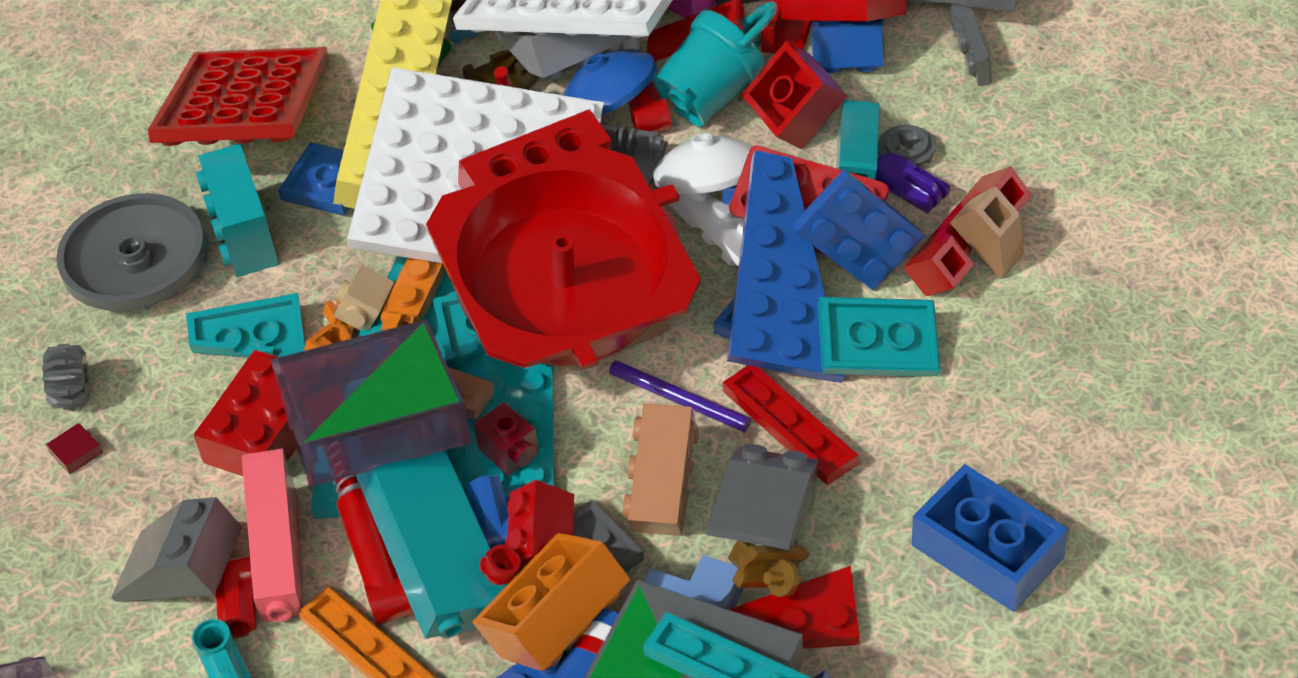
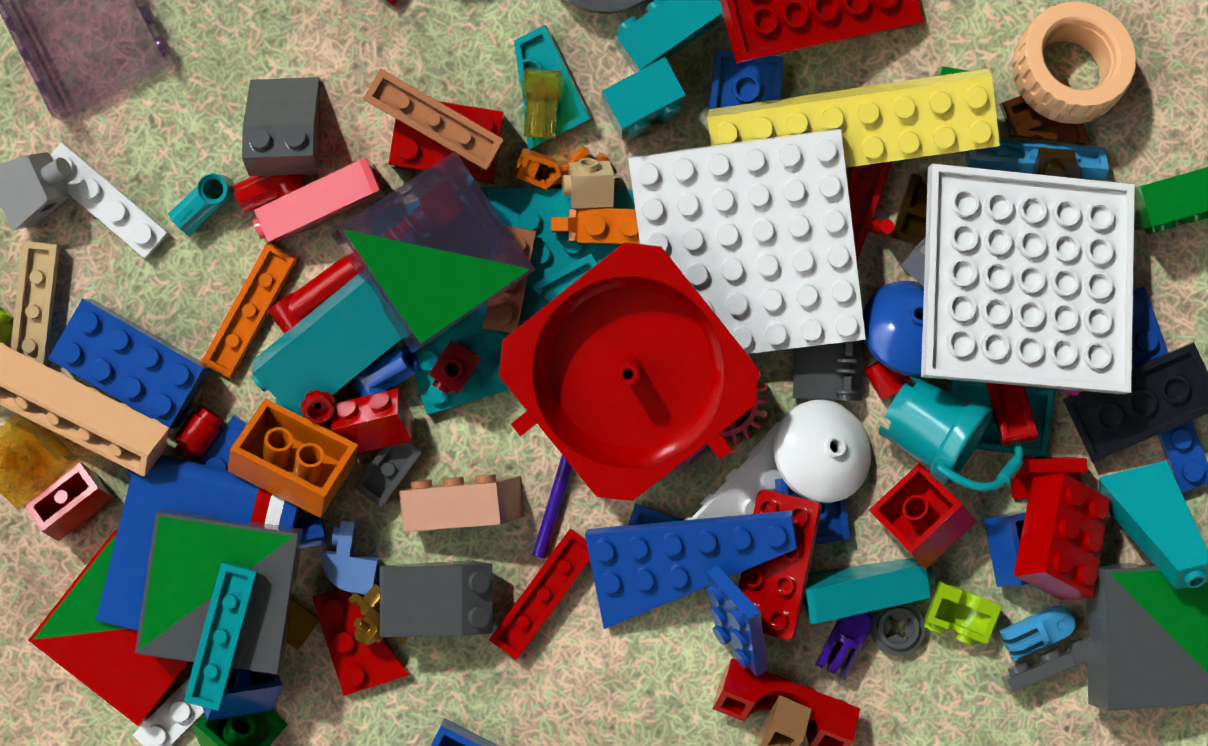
camera: 70 degrees right, 40 degrees up
(224, 397) = (433, 119): none -> nougat plate
(252, 318) = (541, 91): none -> clear yellow piece
(296, 228) = (643, 99): none -> teal brick
(534, 148) = (781, 353): red brick -> none
(878, 336) = (645, 652): teal tile -> none
(904, 92) = (962, 612): none -> lime cylinder
(937, 46) = (1038, 631): none -> dark azure arm

